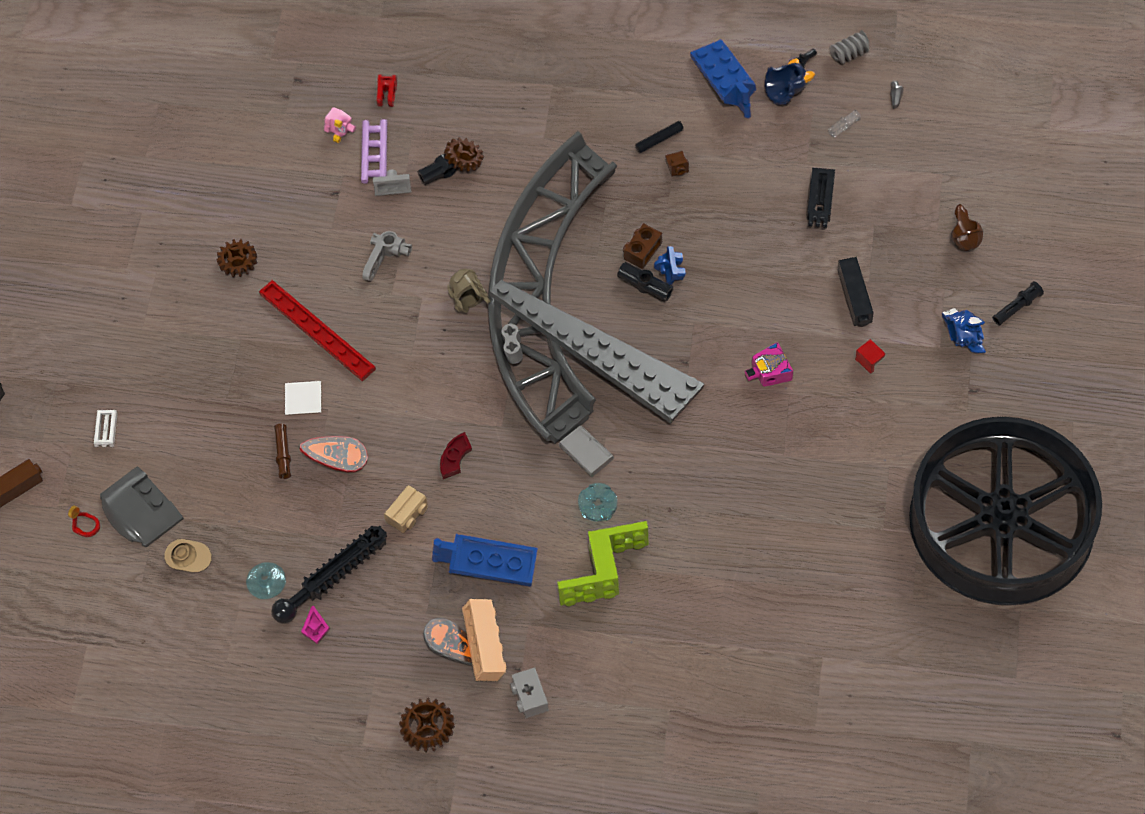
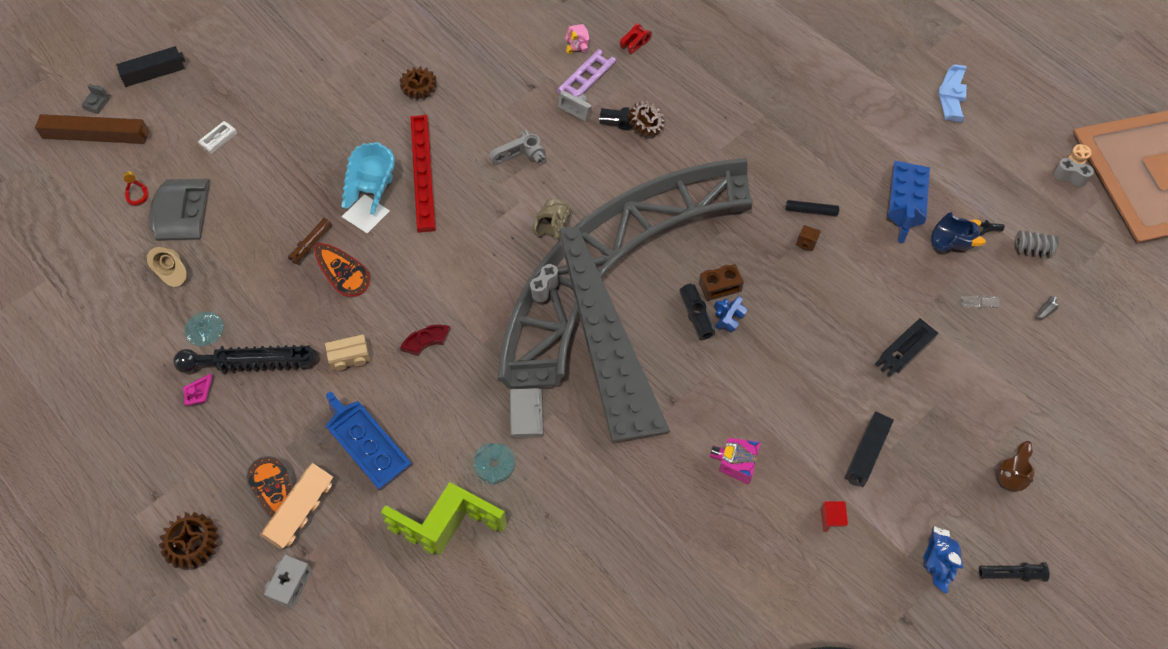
camera: 35 degrees right, 0 degrees up
(280, 359) = (369, 172): none -> medium azure piece

